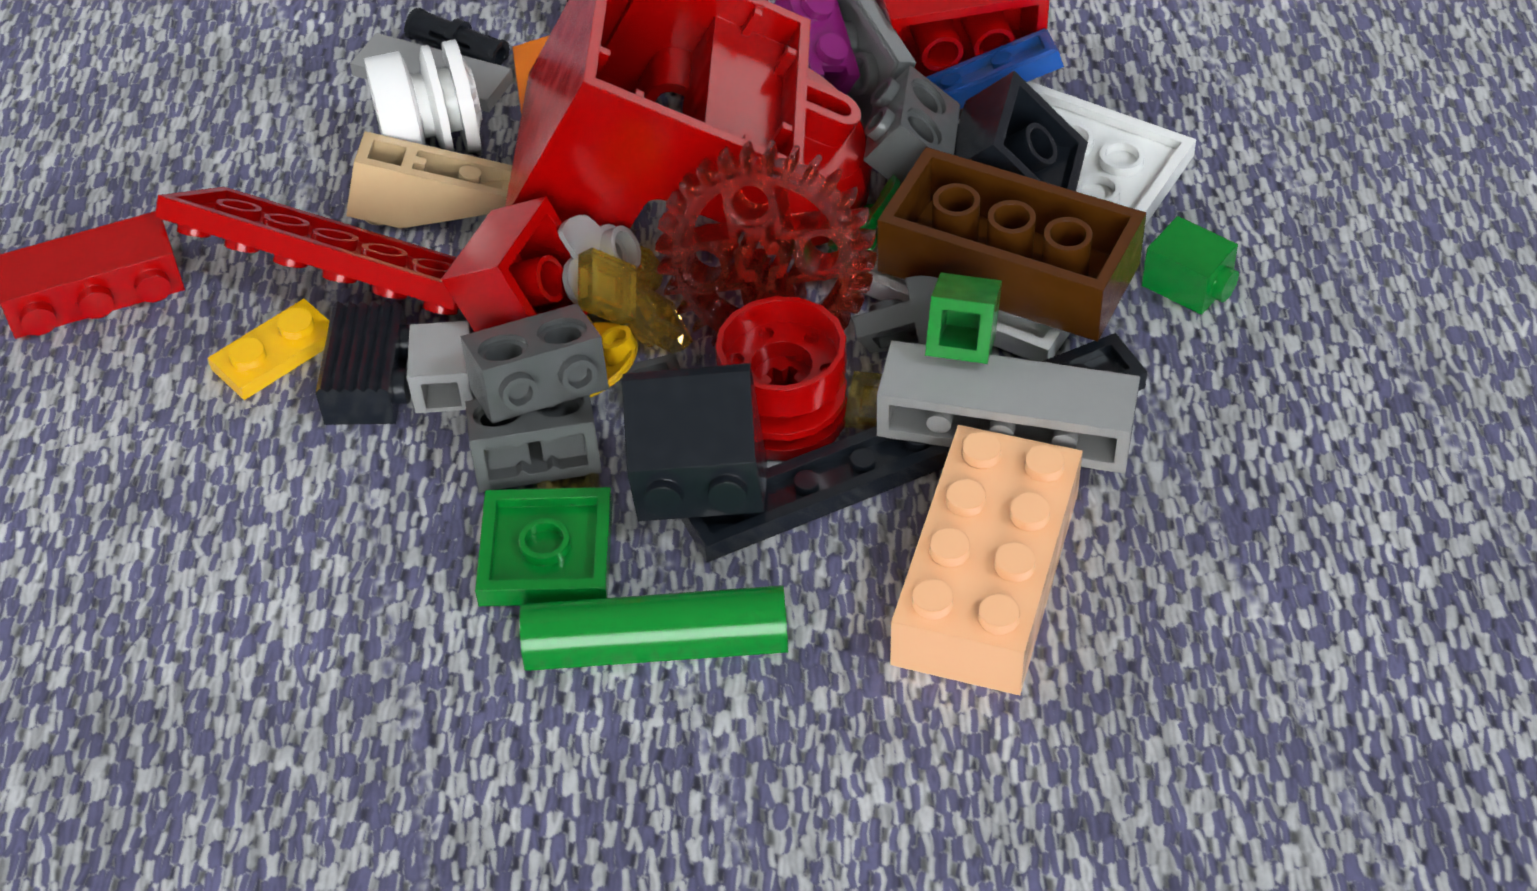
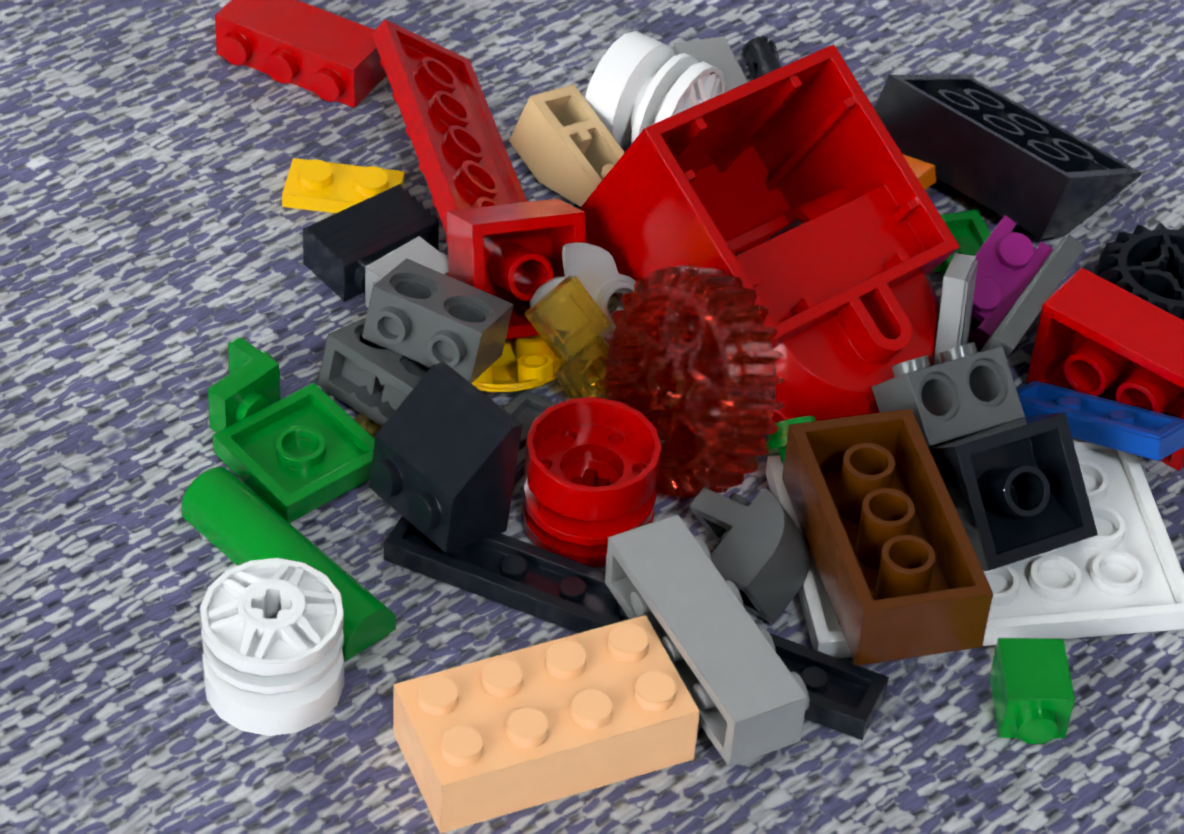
camera: 45 degrees right, 5 degrees down
(442, 525) = (247, 389): none -> green bracket
(764, 681) = (272, 646): none -> white wheel
(841, 64) = (956, 304): none -> light grey tile
(963, 318) = (734, 537): green brick -> none

